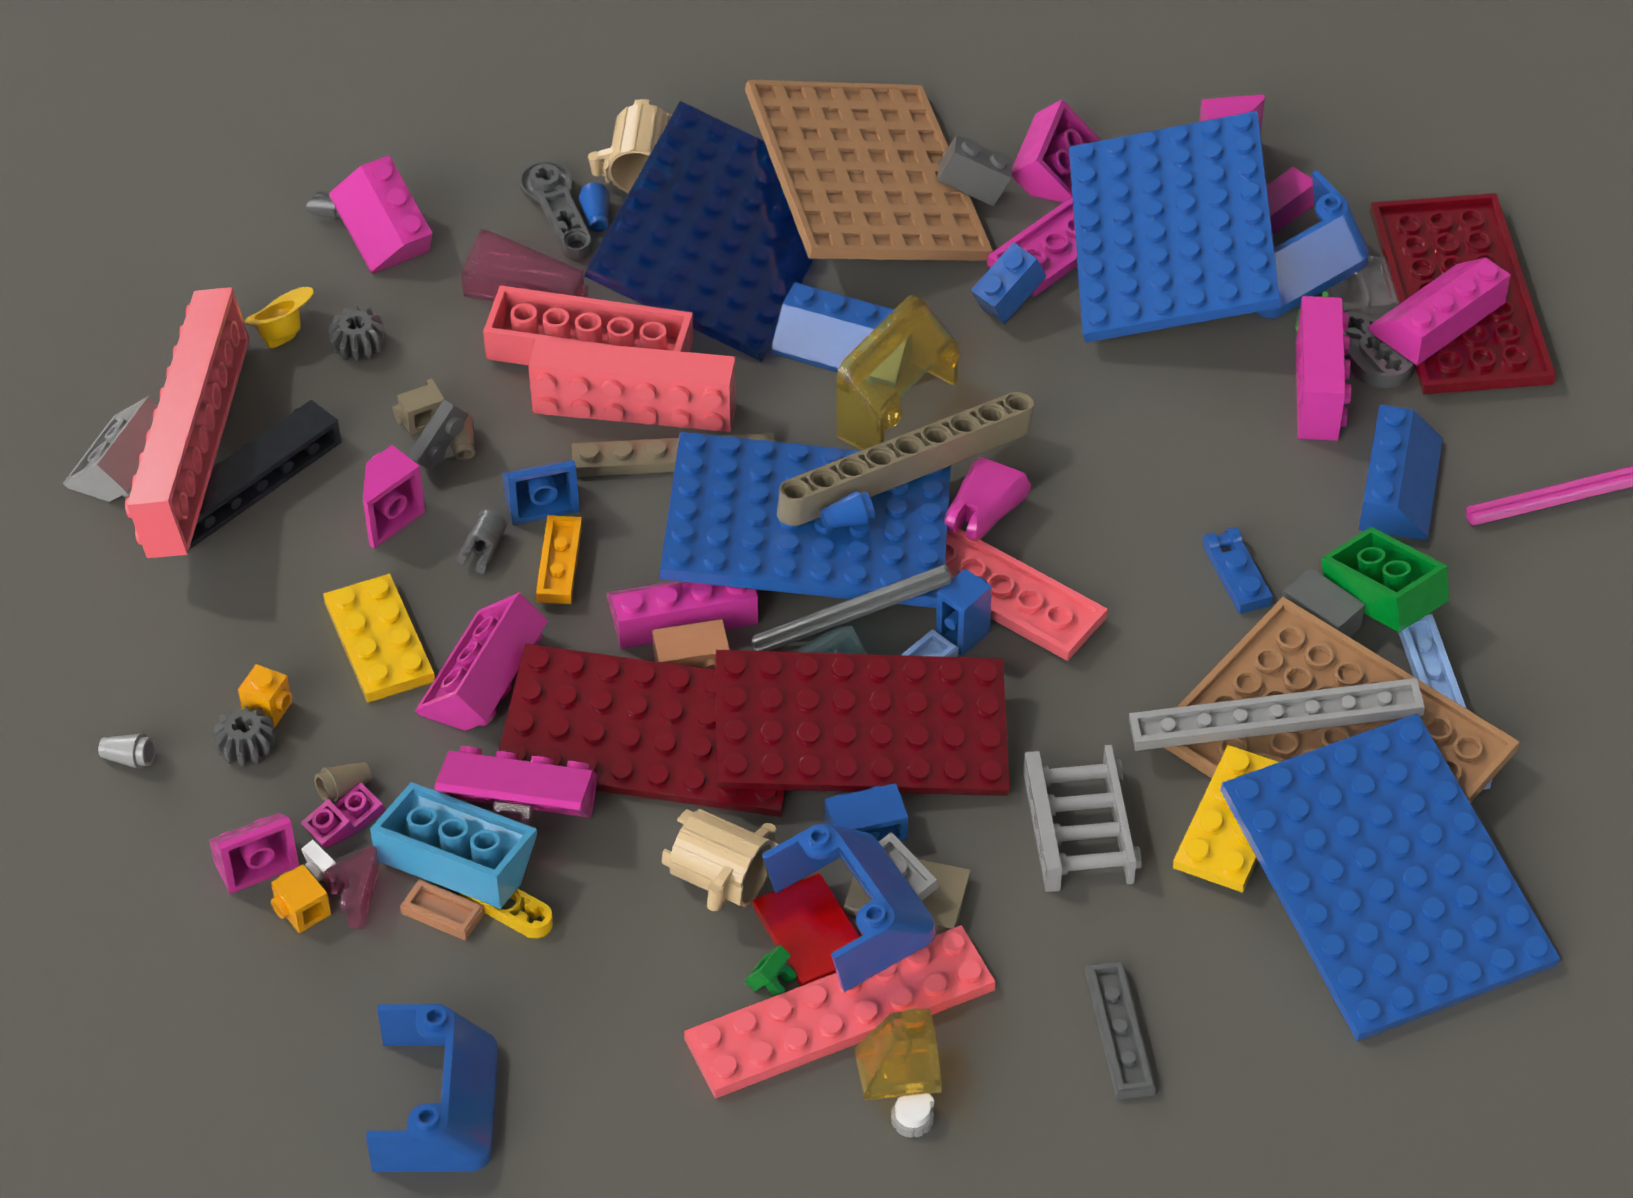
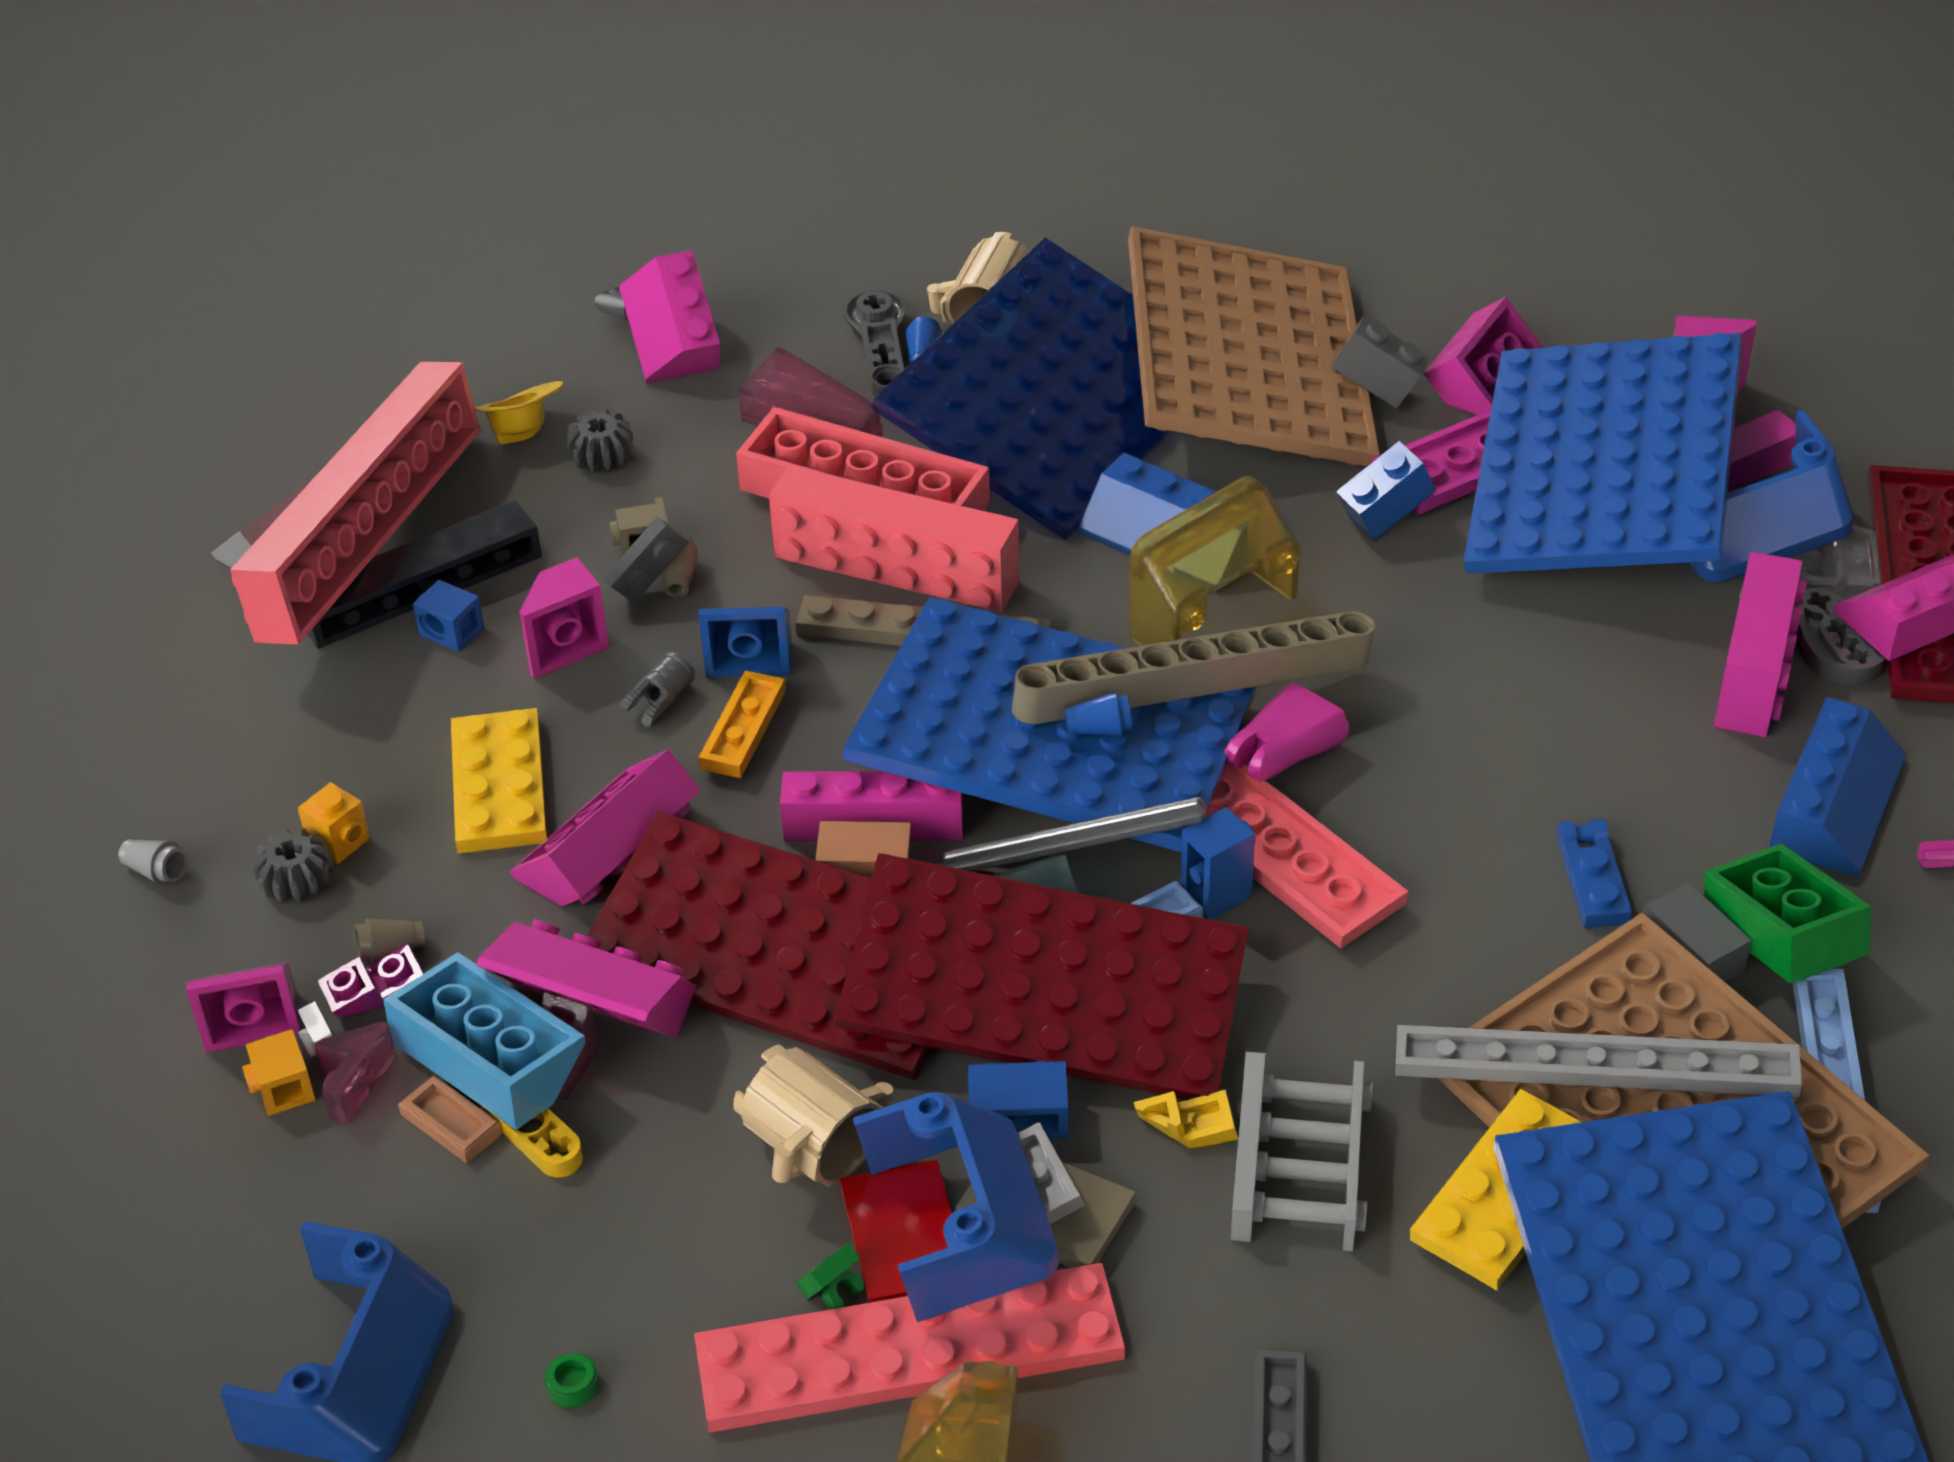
camera: 15 degrees right, 5 degrees down
(288, 507) = (448, 615): none -> blue brick
(604, 1081) = (571, 1380): none -> green tile
(994, 811) = (1191, 1122): none -> yellow slope

